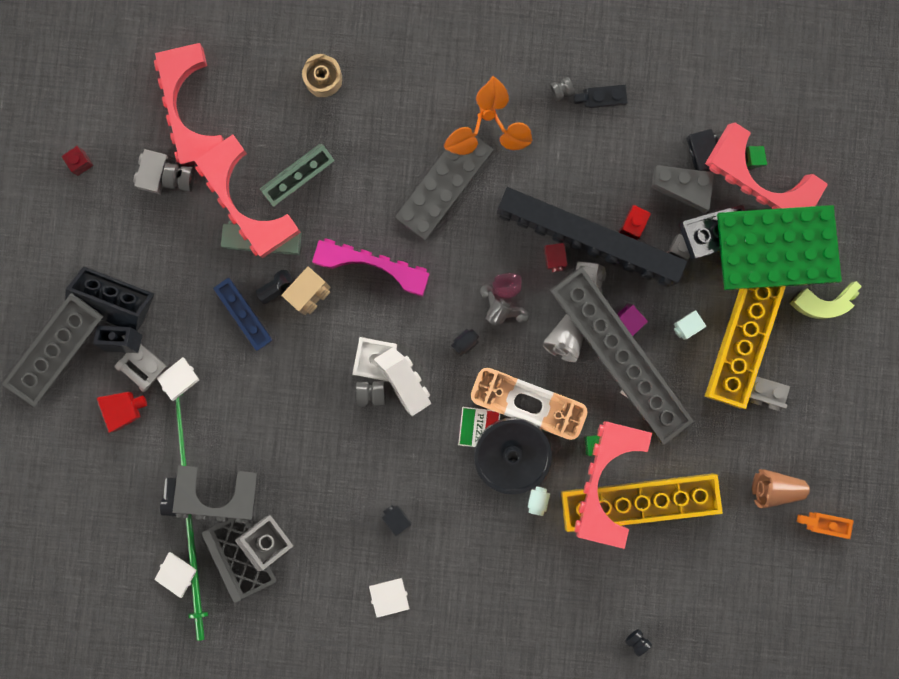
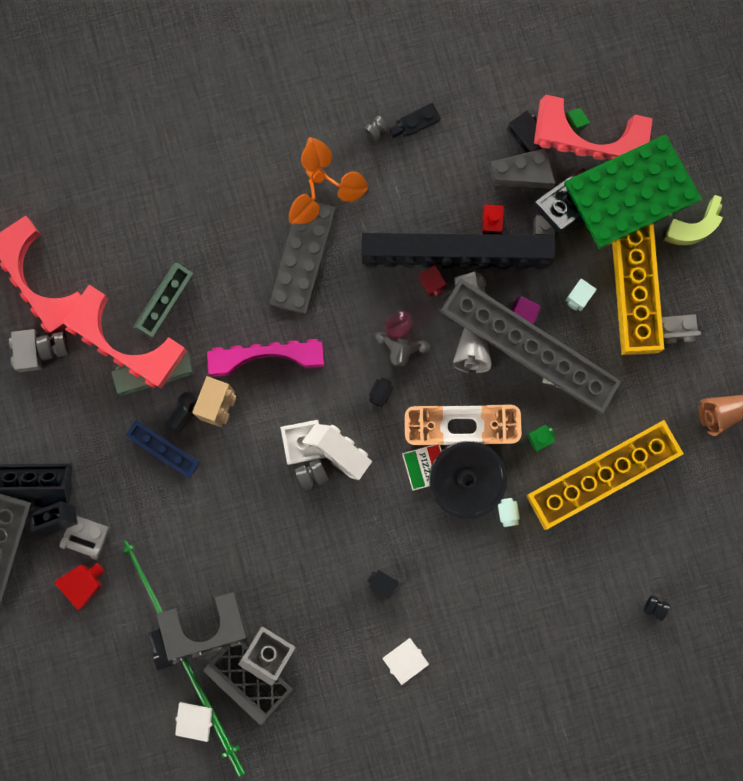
camera: 20 degrees left, 5 degrees down
(178, 379) = (124, 534): white piece -> none
(311, 75) = (152, 191): tan brick -> none
(594, 523) = (568, 508): coral arch -> none

